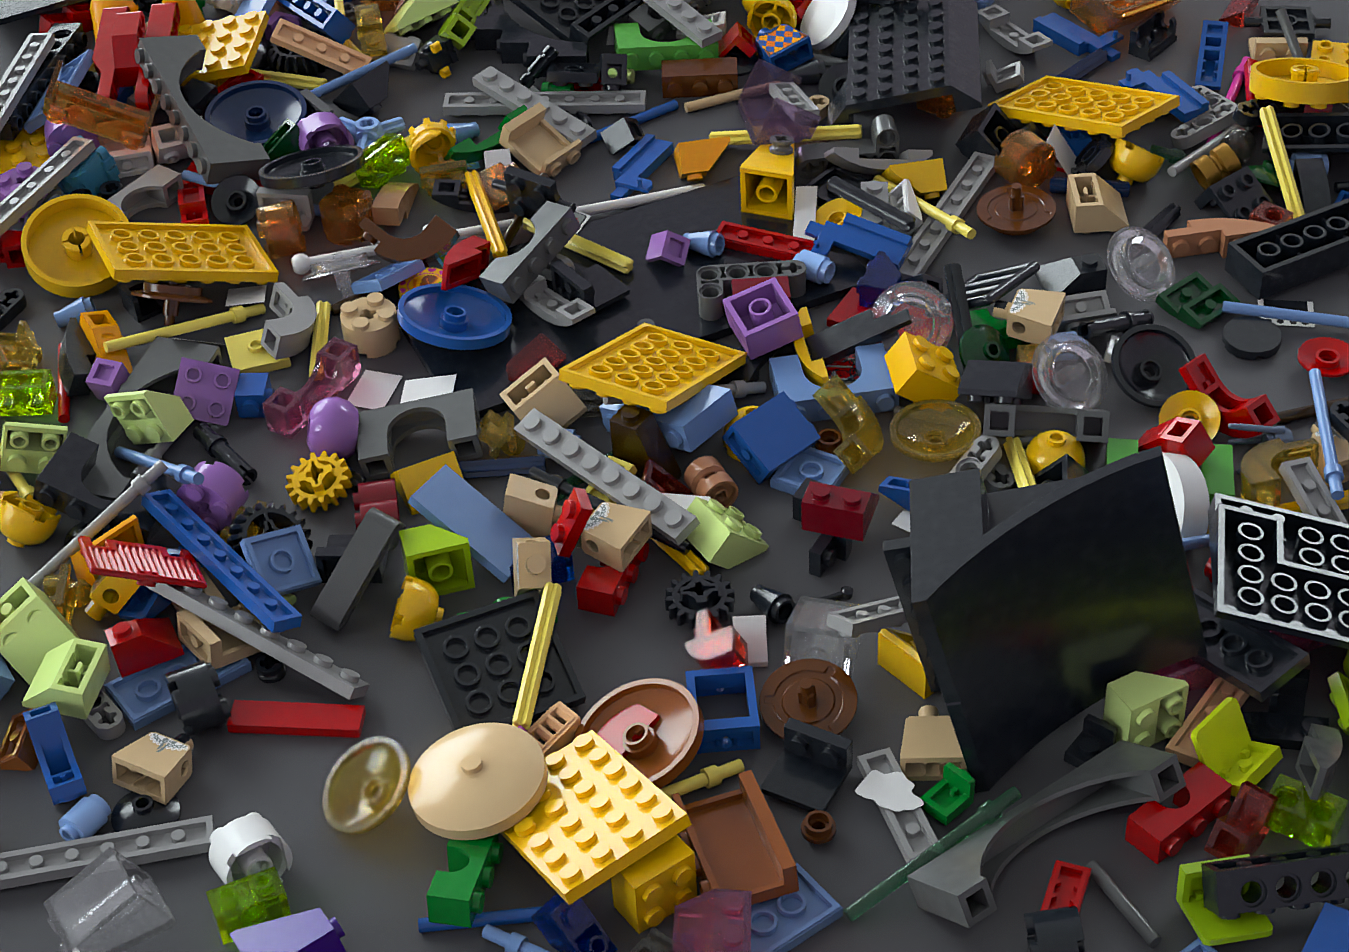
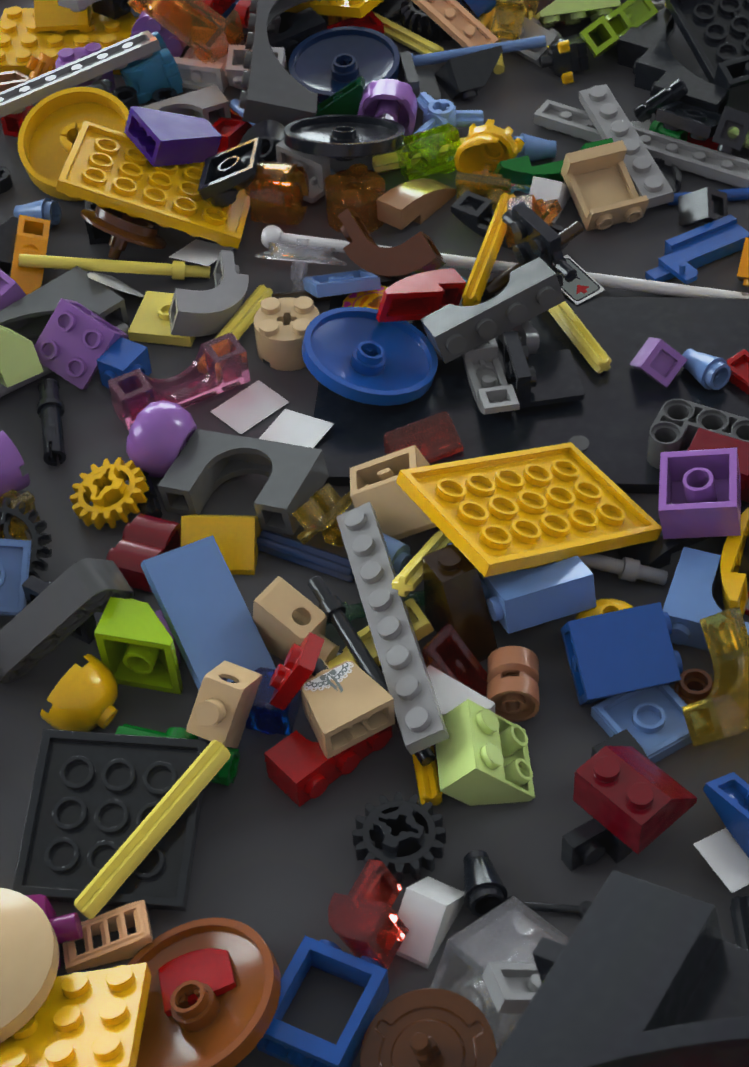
camera: 30 degrees right, 5 degrees up
(168, 211) = (171, 137): none -> dark purple slope
(242, 221) = (229, 173): none -> black slope
(598, 432) = (412, 573): none -> light yellow axle

